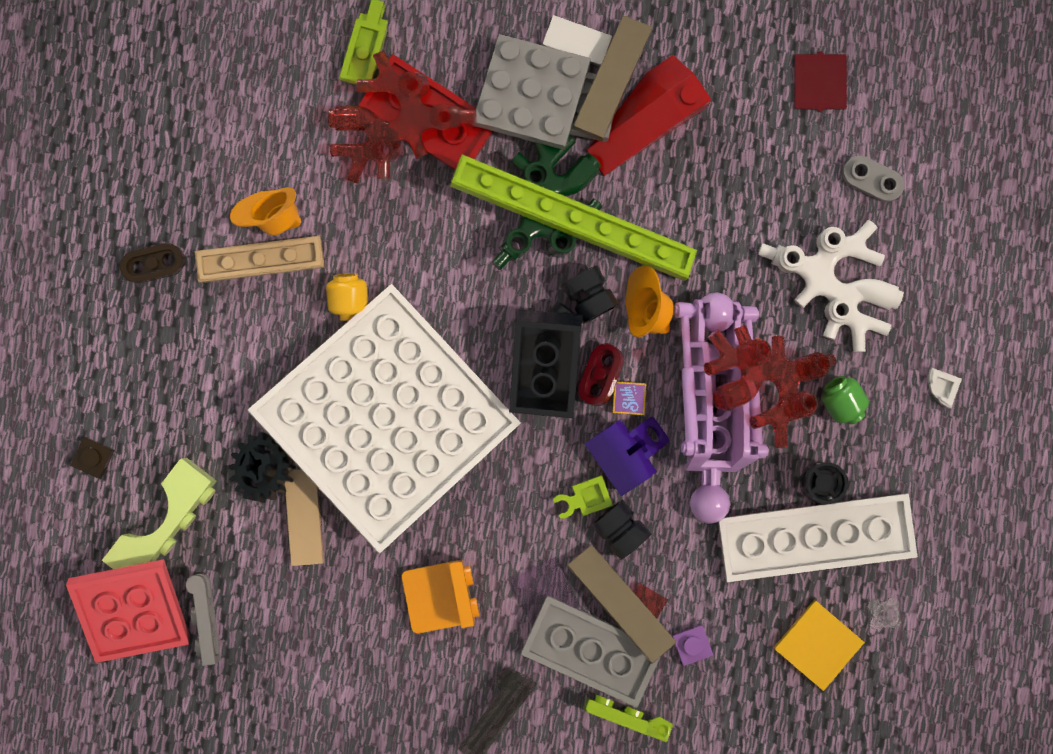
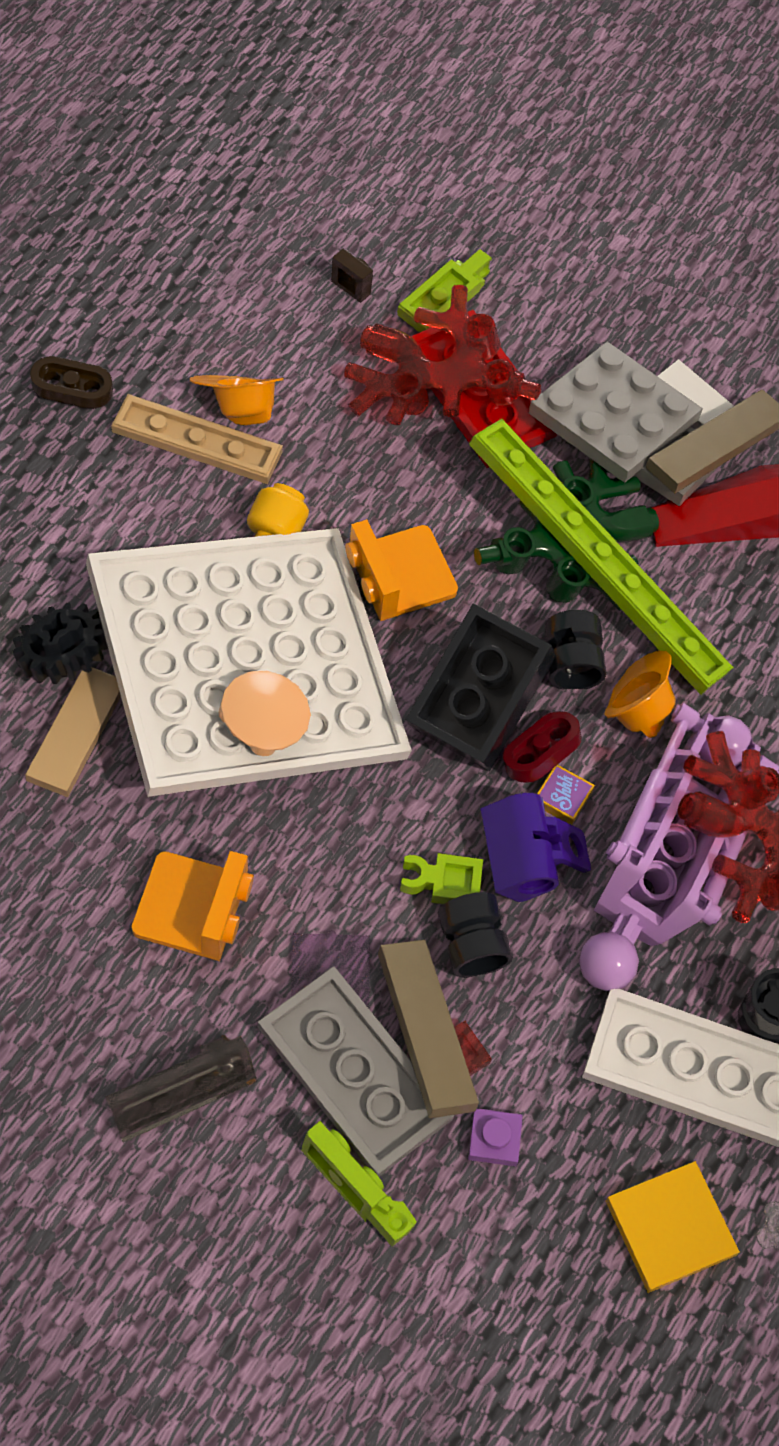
camera: 15 degrees right, 25 degrees down
(294, 67) = (352, 275): none -> dark brown plate
(419, 457) = (265, 711): none -> light nougat dish
(447, 291) = (400, 569): none -> light orange bracket

